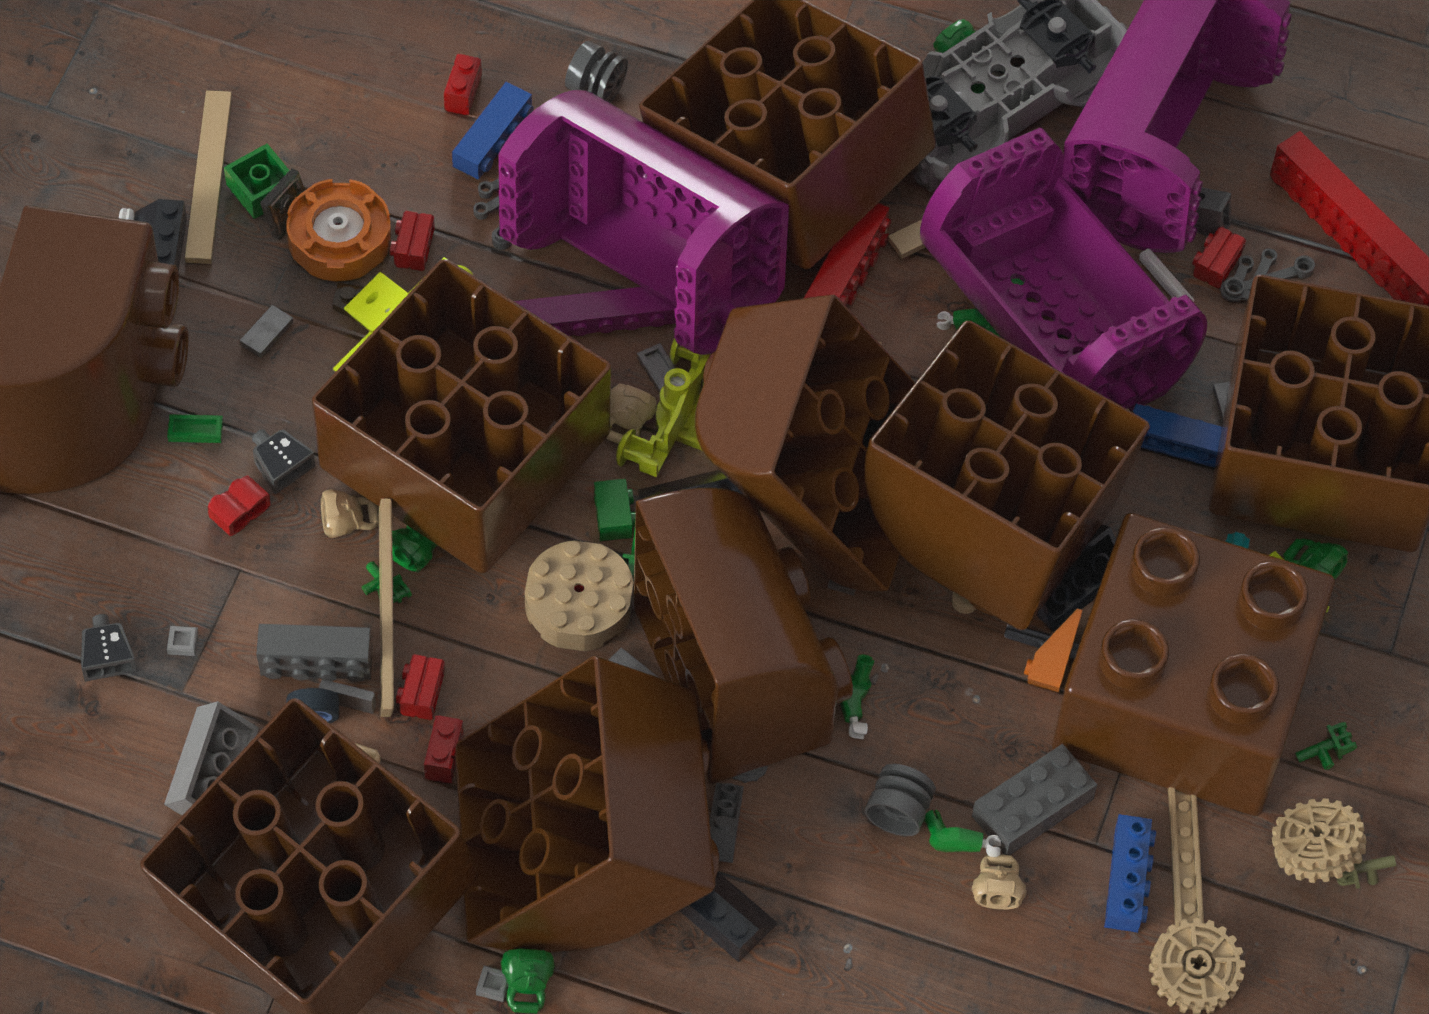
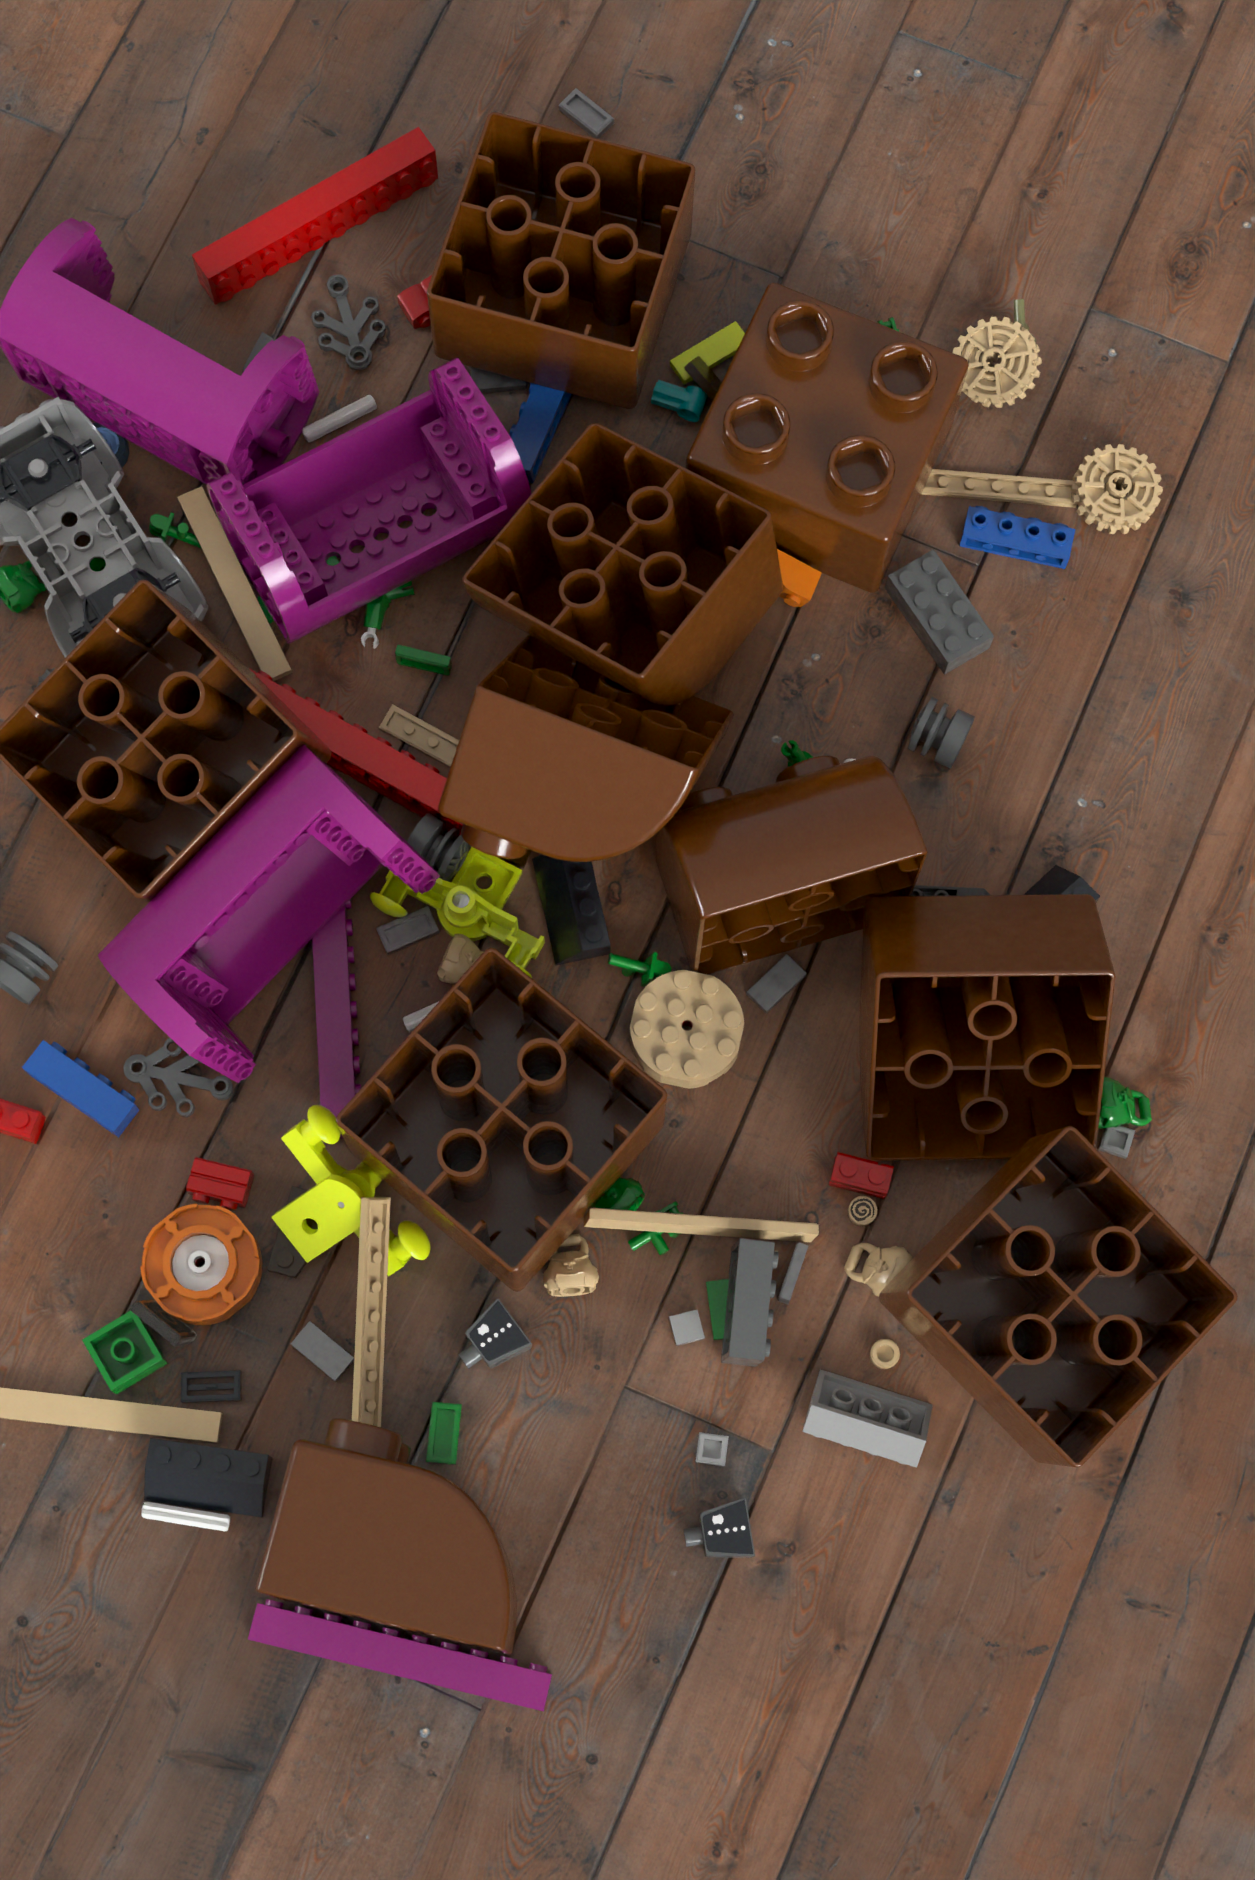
camera: 85 degrees left, 15 degrees up
(235, 269) = (185, 1387): none -> black tile
(238, 505) = (551, 1384): red brick -> none
(279, 351) = (371, 1310): none -> tan tile
(295, 612) = (686, 1327): none -> light grey tile
(320, 700) = (811, 1308): black wheel -> none
(411, 757) = (862, 1211): none -> tile
(421, 687) = (785, 1196): red brick -> none
(613, 509) = (584, 987): green brick -> none
(927, 352) = (423, 660): none -> green tile
(958, 839) = (980, 690): green arm -> none
(997, 885) = (1025, 654): tan piece -> none
(1219, 257) = (327, 364): red brick -> none
(1319, 556) = (686, 321): green piece -> none

